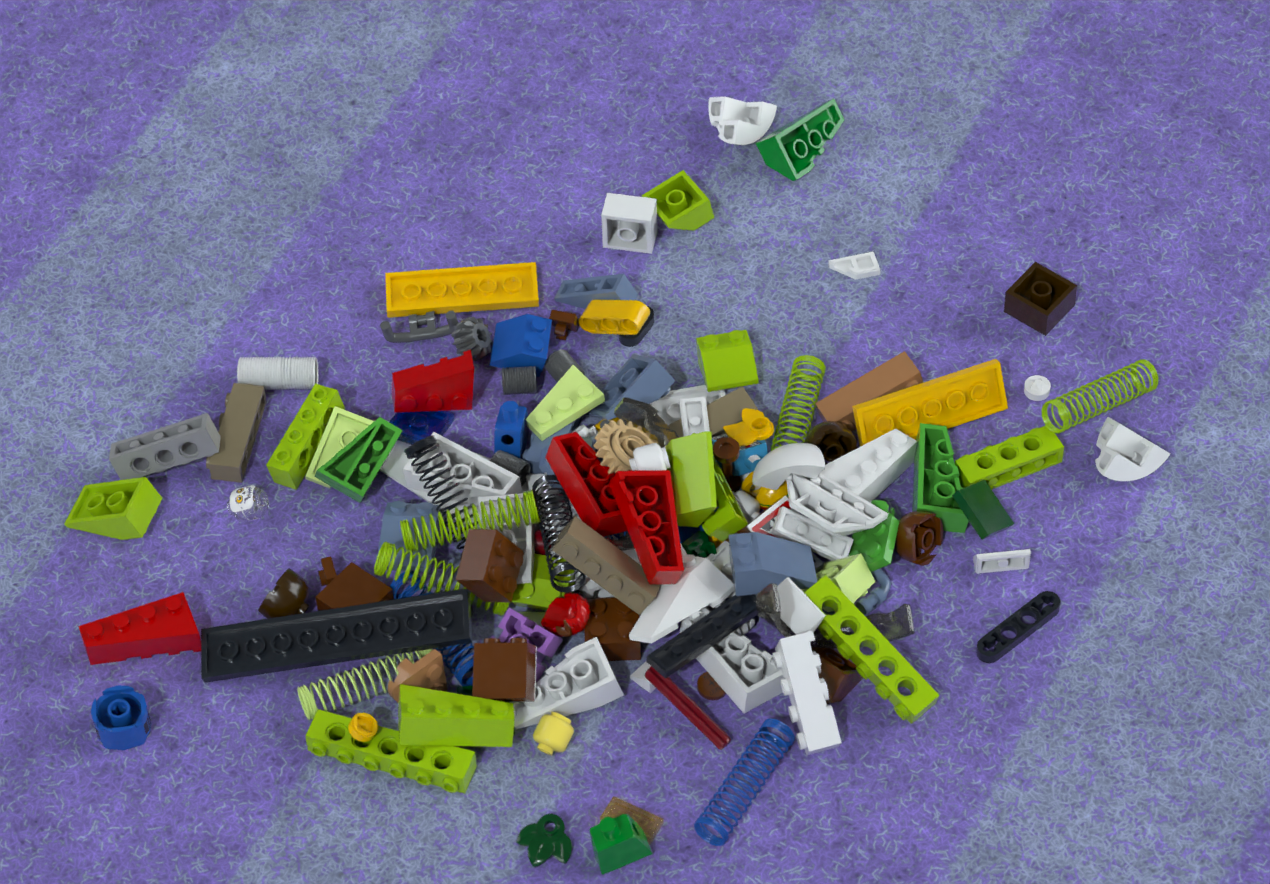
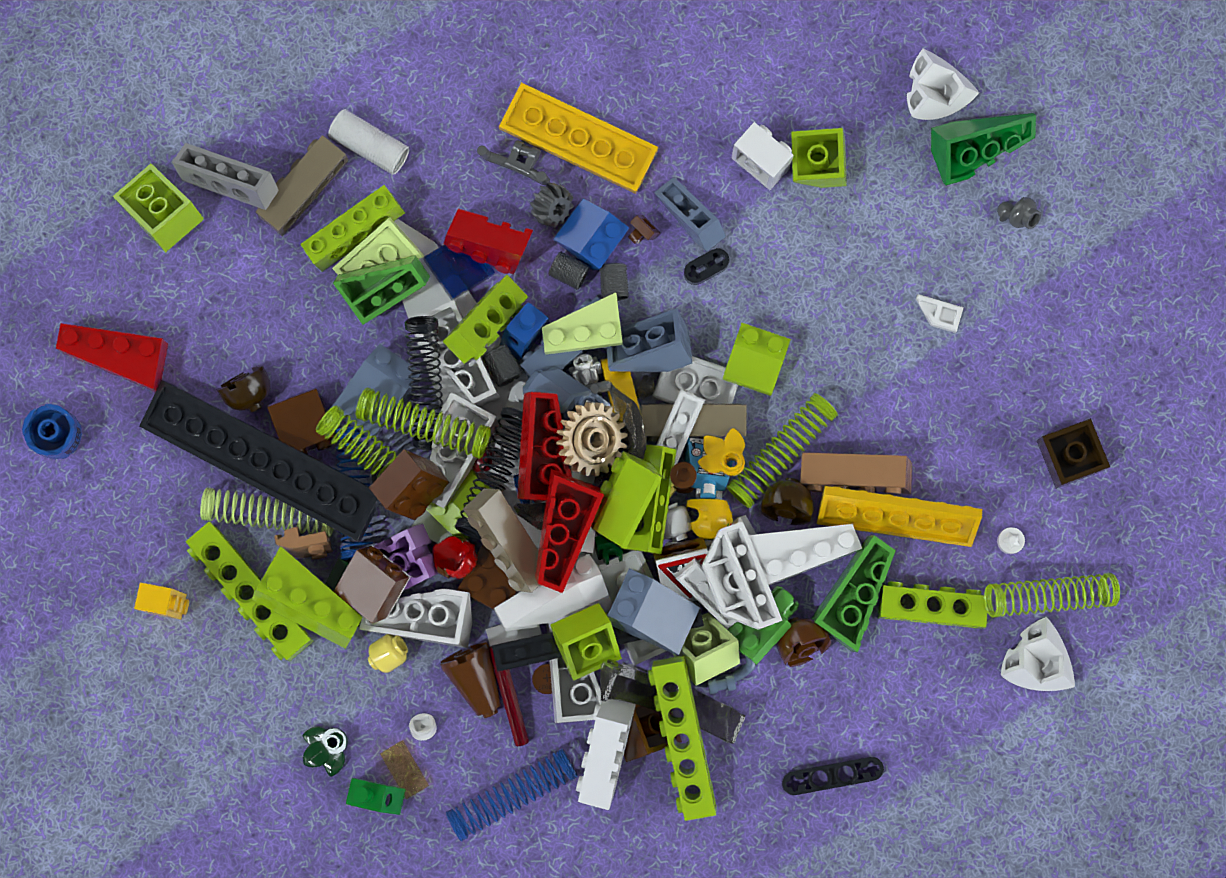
camera: 30 degrees right, 30 degrees up
(248, 503) = (269, 268): clear head -> none
(315, 783) = (161, 601): none -> yellow brick
(328, 571) = (295, 383): reddish brown plate -> none
(363, 727) = (231, 566): yellow tile -> none
(473, 432) = (485, 320): none -> lime brick
(614, 317) = (687, 253): yellow beam -> none
(625, 775) = (422, 726): none -> white tile
(647, 708) = (474, 678): none -> reddish brown cone
(649, 458) = (595, 471): white head -> none
(728, 608) = (586, 640): none -> lime slope
(793, 458) = (729, 517): white brick -> none
(797, 609) = (638, 675): white slope -> none
(873, 168) = (1022, 214): none -> dark grey animal
(983, 509) = (873, 651): dark green tile -> none
(1002, 561) = (862, 700): white slope -> none

